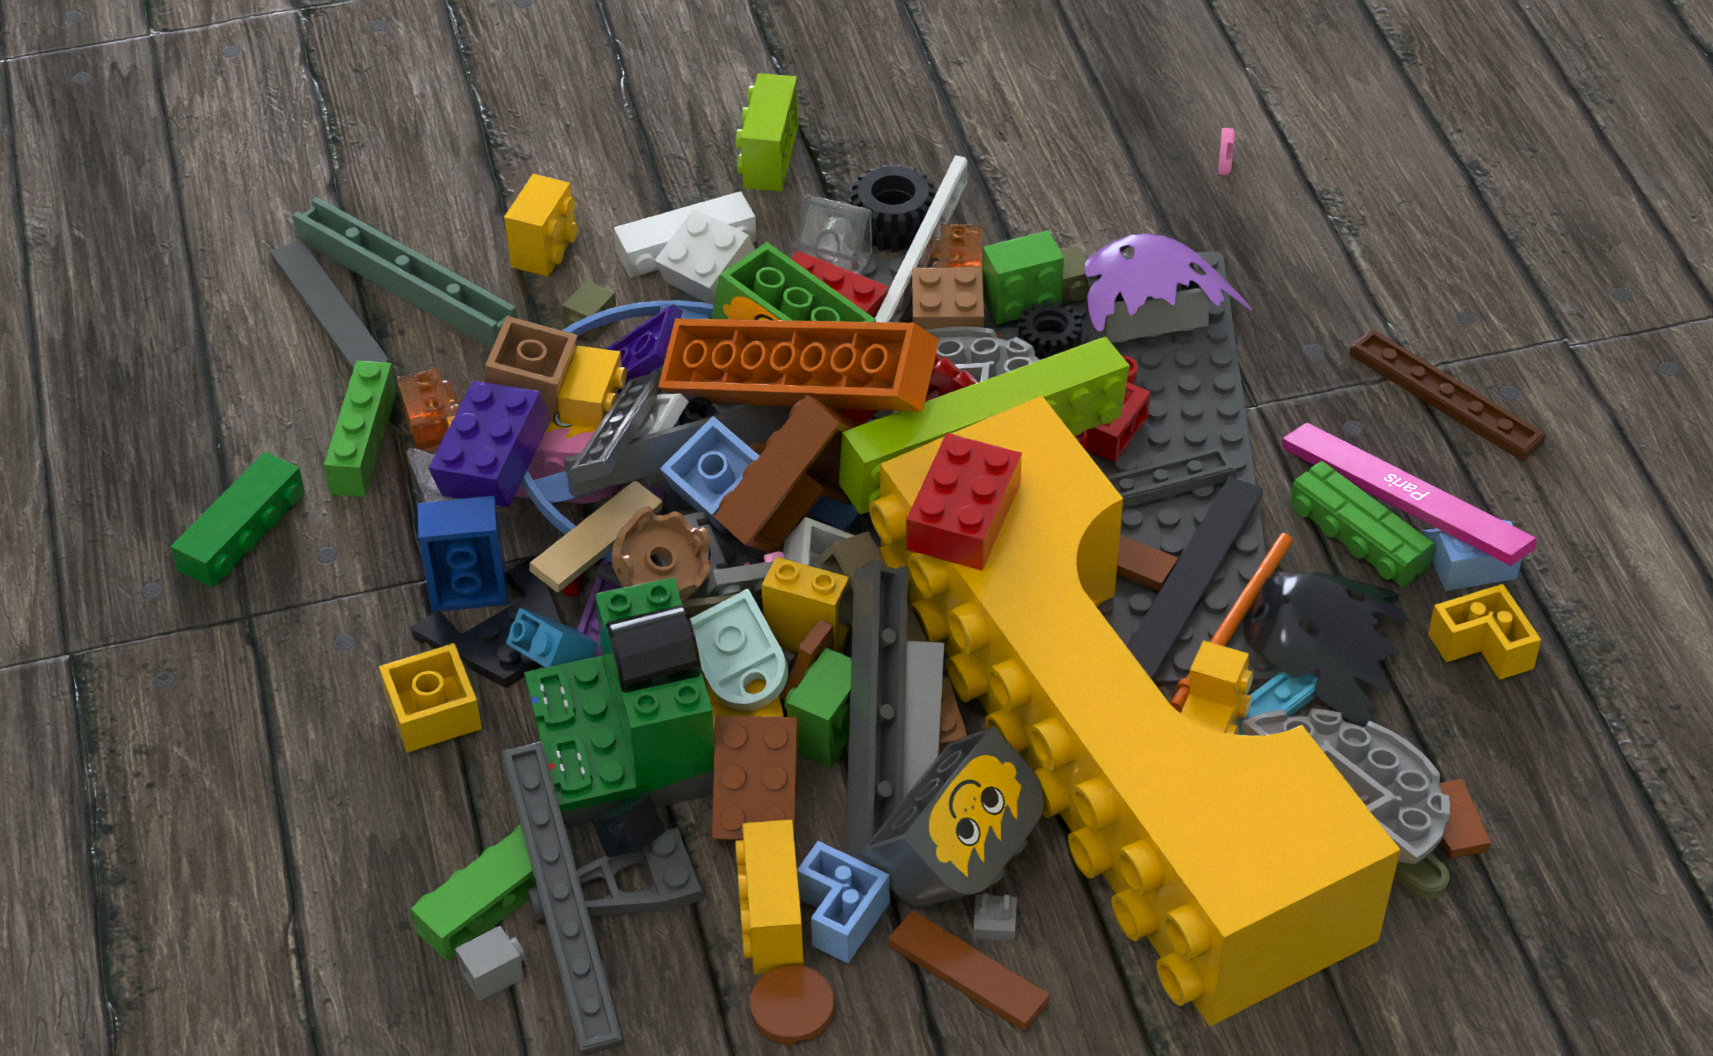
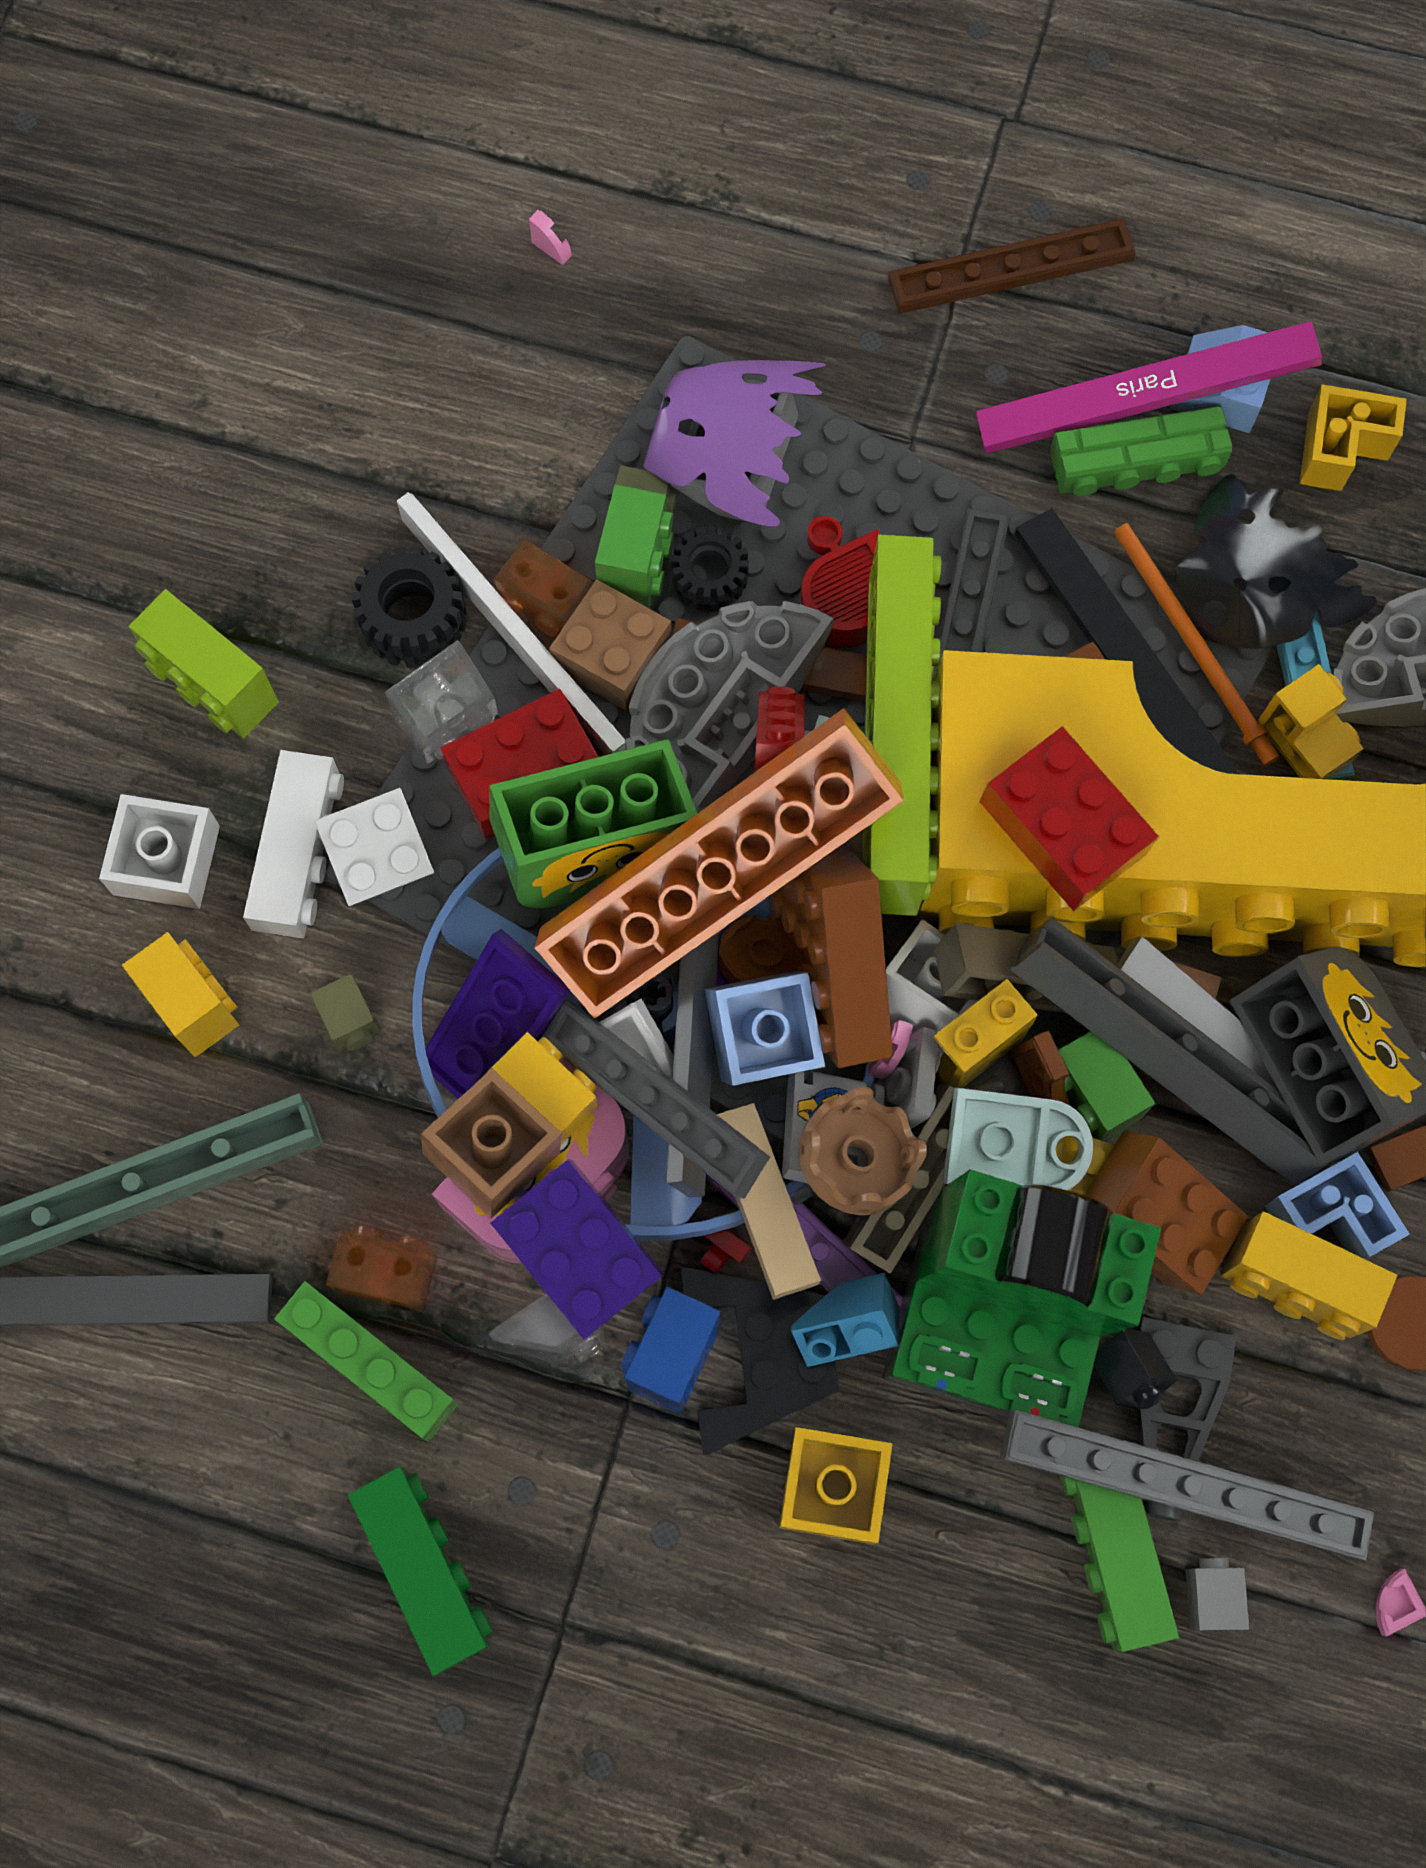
camera: 60 degrees left, 25 degrees up
(630, 175) = (159, 851): none -> white brick

